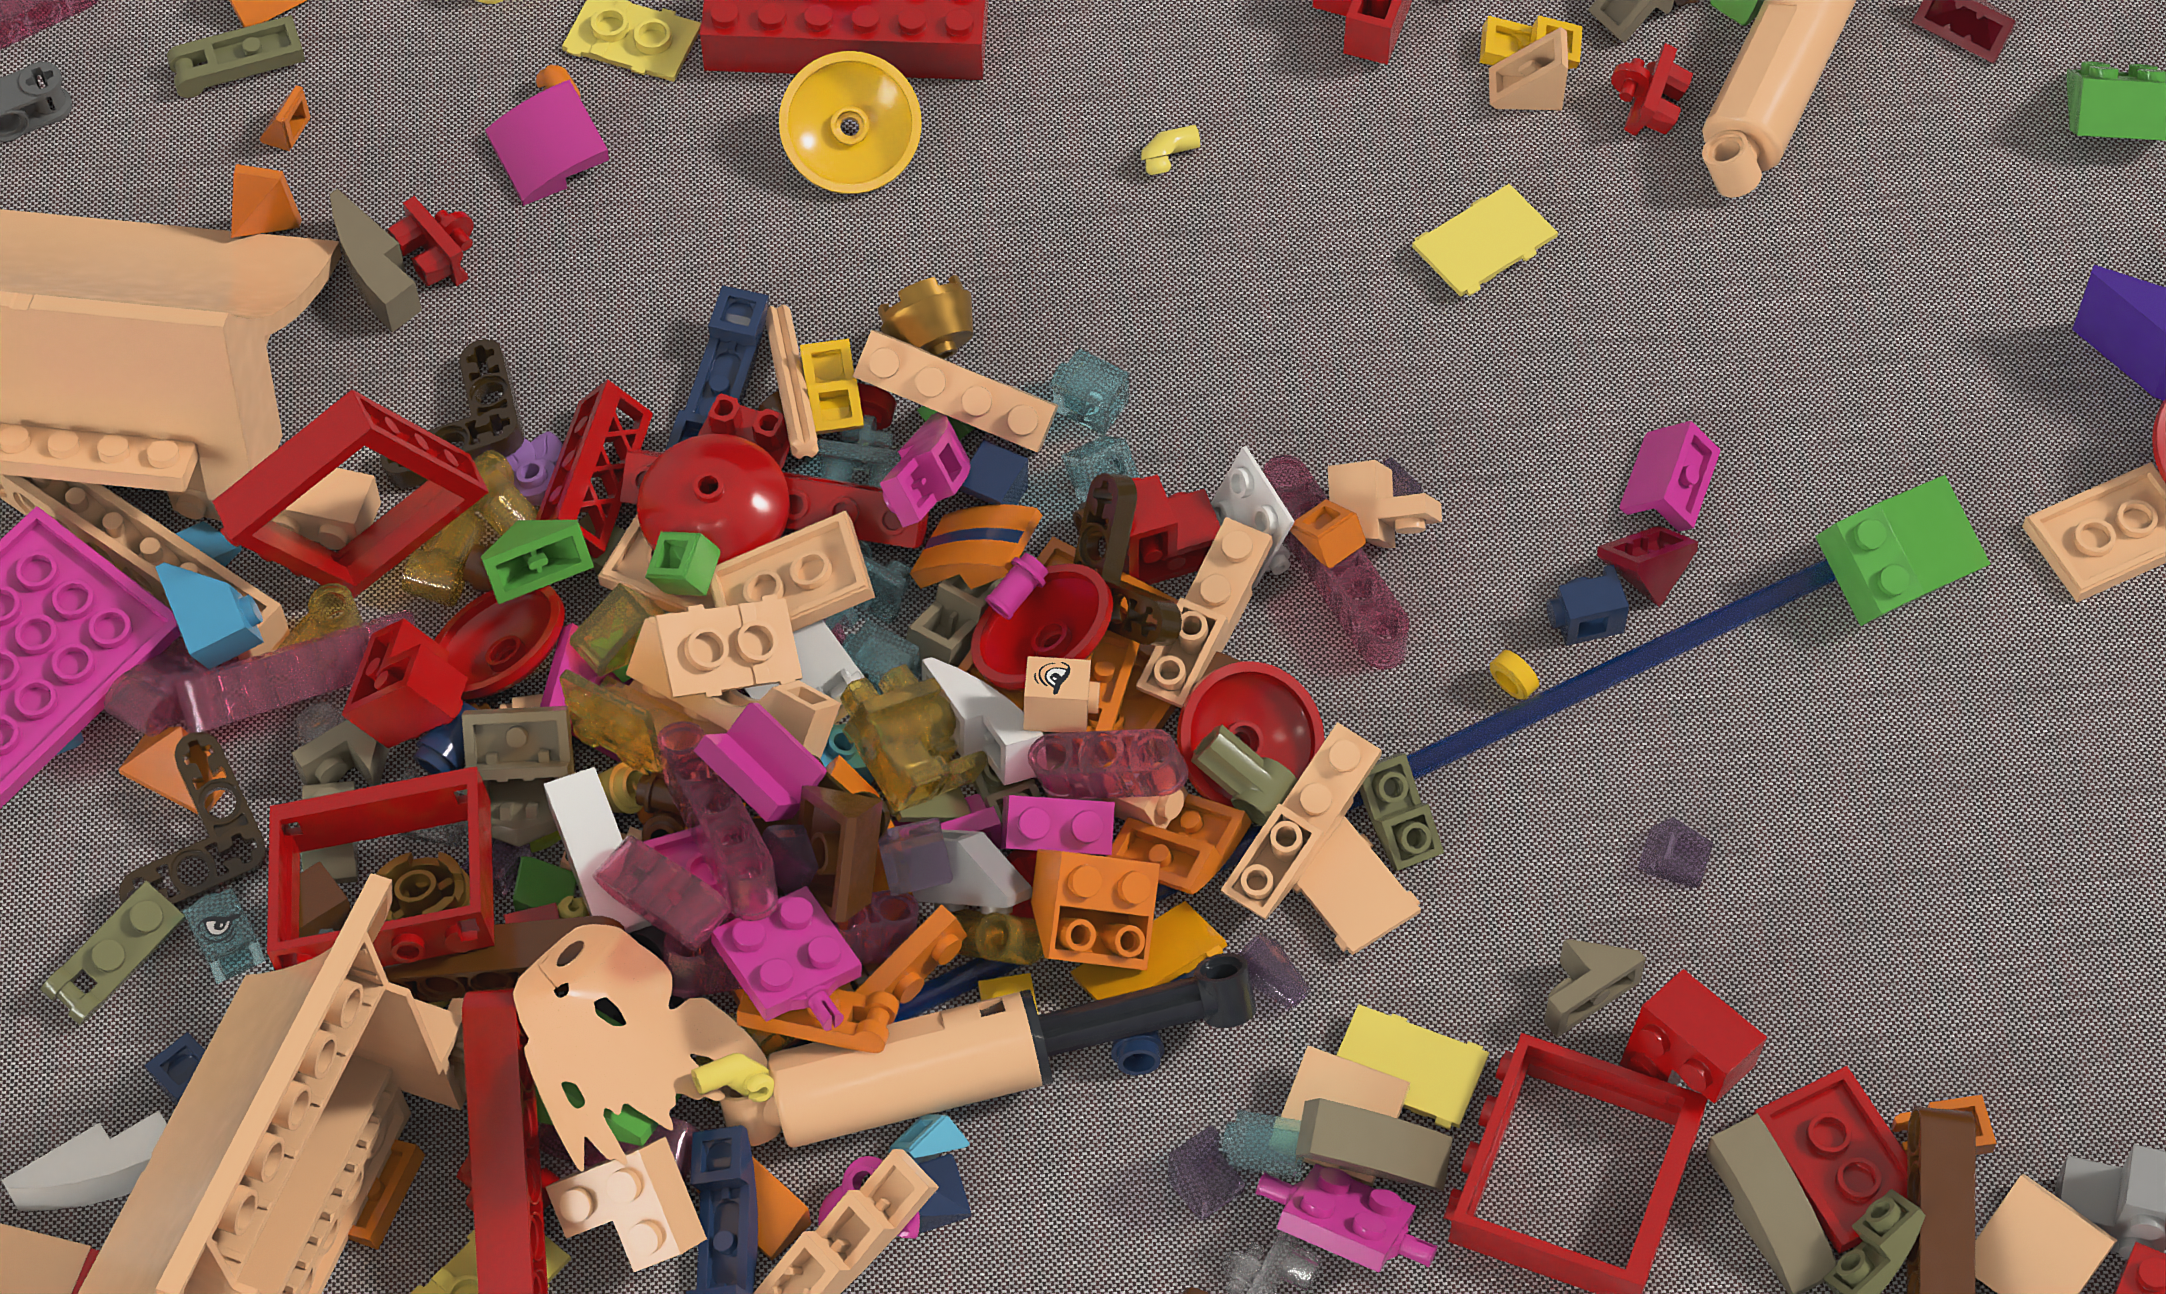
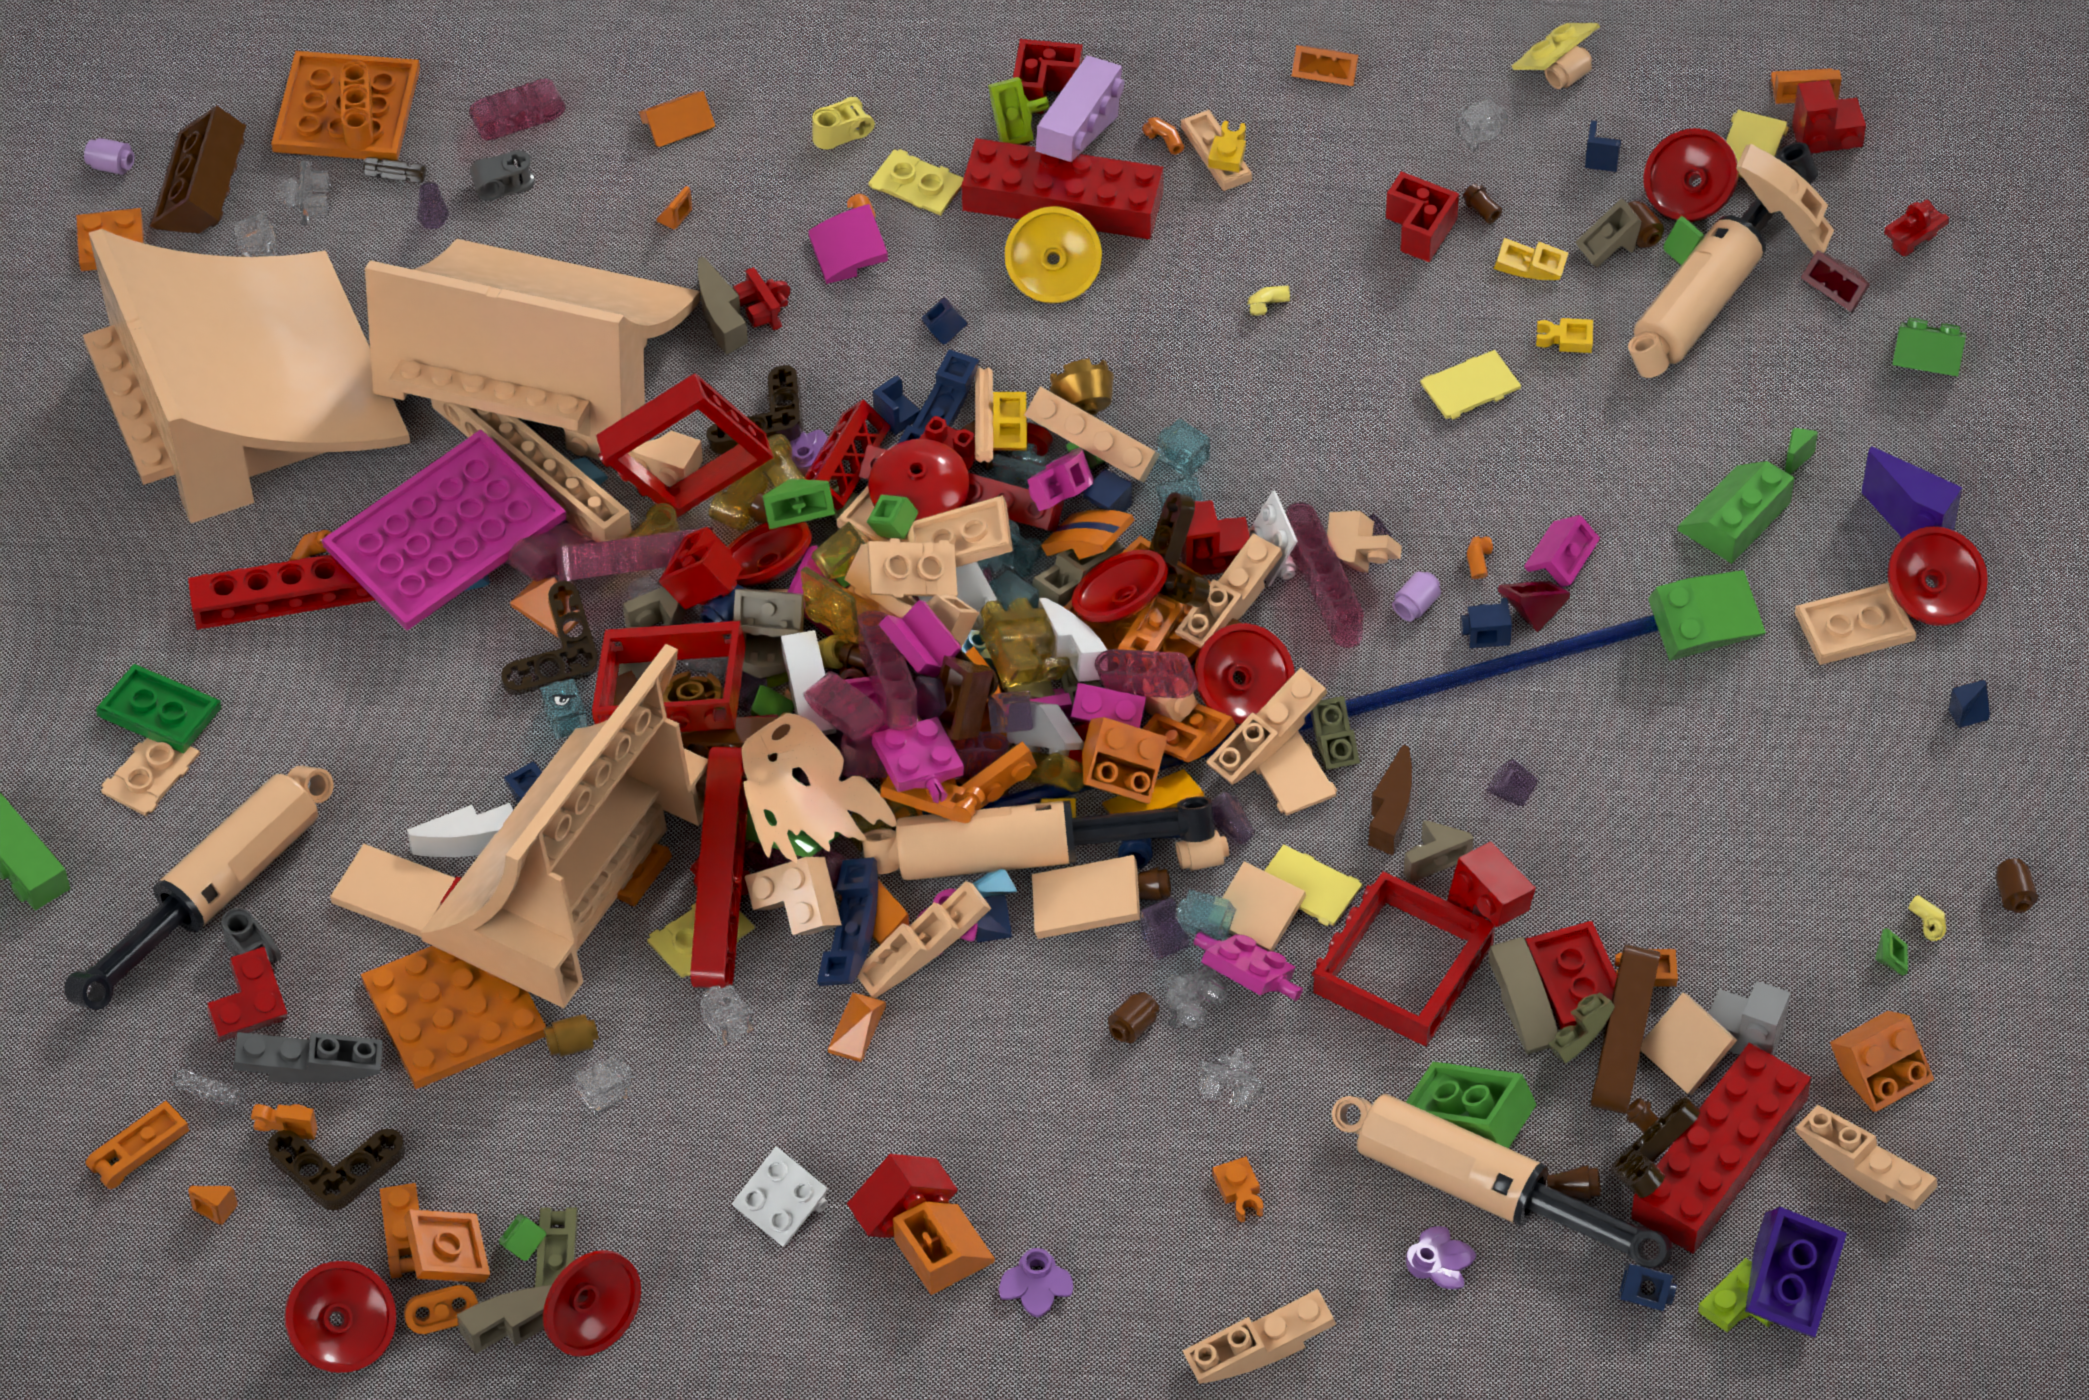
camera: 10 degrees right, 5 degrees down
(114, 952) = (493, 709): olive plate -> none
(210, 615) = (584, 509): dark azure slope -> none
(234, 55) = (647, 162): olive plate -> none
(261, 202) = (652, 258): orange slope -> none
(653, 381) = (894, 406): none -> dark blue panel
(706, 240) = (944, 320): none -> dark blue slope
(736, 1072) = (875, 824): light yellow arm -> none
(1017, 585) = (1108, 558): dark pink pin -> none
(1059, 695) = (1121, 625): light nougat brick -> none
(1076, 1137) = (1085, 896): none -> light nougat tile
(1166, 1102) = (1154, 884): none -> reddish brown cone
(1239, 1042) = (1202, 854): none -> light nougat brick
(1252, 781) = (1234, 692): olive piece -> none
(1329, 532) = (1321, 553): orange slope -> none
(1373, 1144) = (1274, 922): dark tan slope -> none
(1475, 576) = (1416, 596): none -> lavender brick
(1509, 914) = (1391, 804): none -> reddish brown slope
(1514, 675) = (1428, 659): yellow tile -> none
(1532, 76) = (1525, 281): light nougat slope -> none
(1548, 503) = (1475, 556): none -> orange arm
(1611, 146) = (1571, 335): none -> yellow plate
(1647, 88) = (1616, 292): red hips -> none
(1908, 378) = (1739, 509): none -> bright green slope
(1974, 275) = (1800, 449): none -> bright green slope

